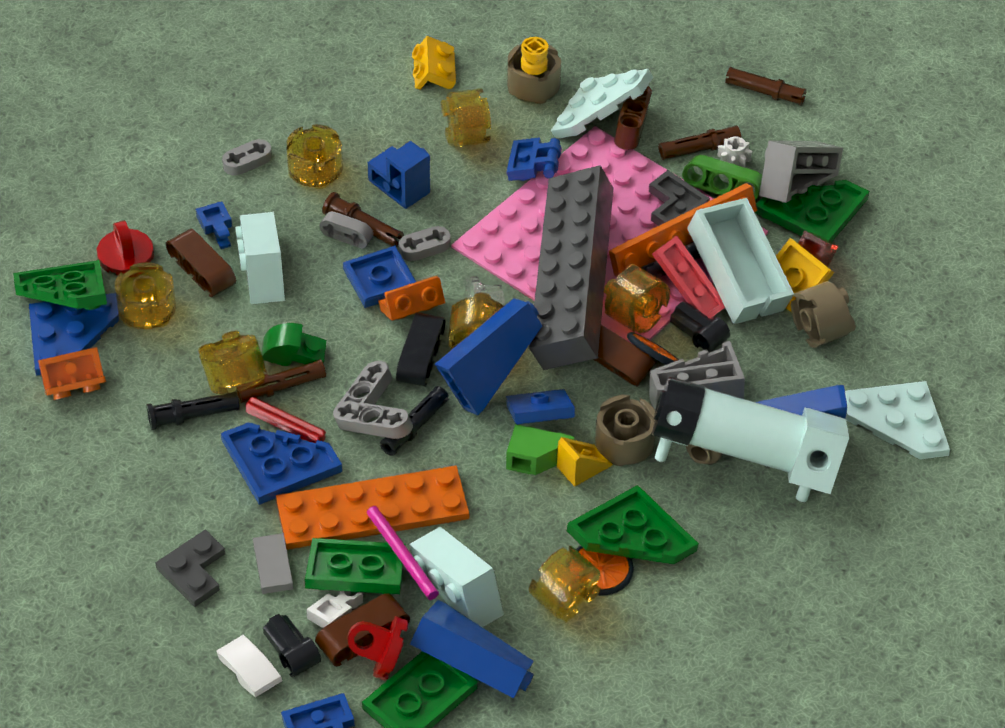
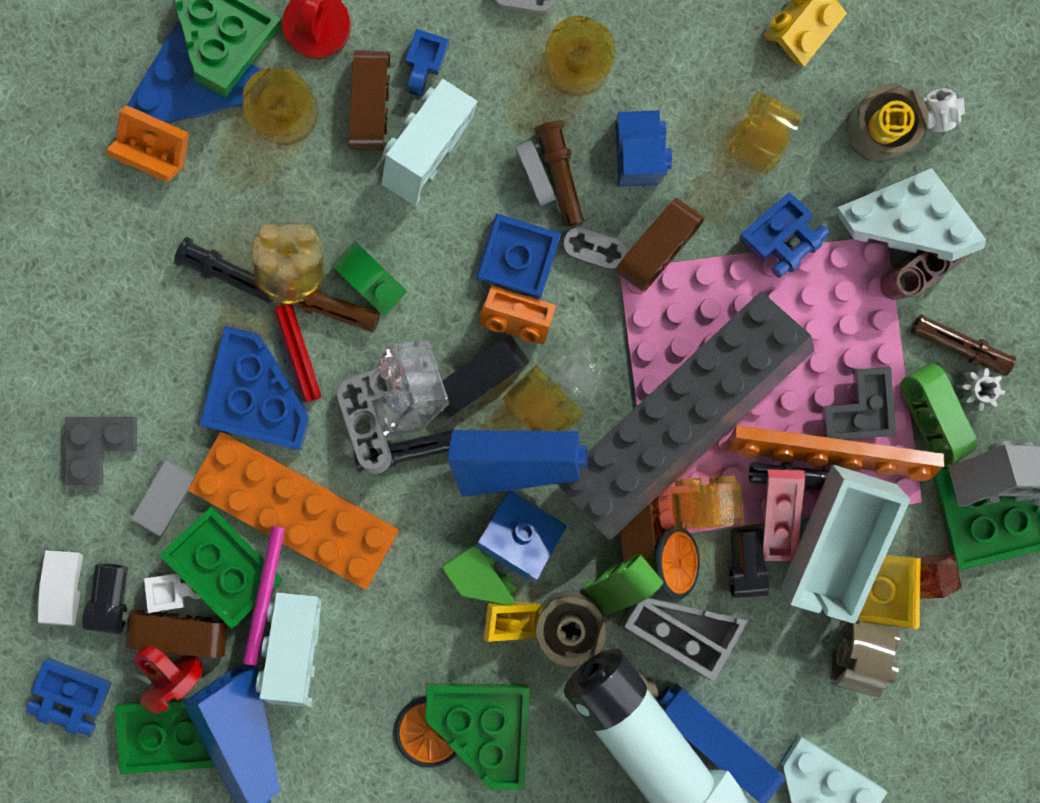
camera: 40 degrees right, 40 degrees up
(389, 367) = (413, 388): none -> clear brick
(463, 209) = (659, 244): none -> reddish brown beam
(563, 46) = (943, 109): none -> white gear
(565, 583) = (370, 744): clear yellow brick -> none
(632, 365) = (623, 585): none -> bright green beam

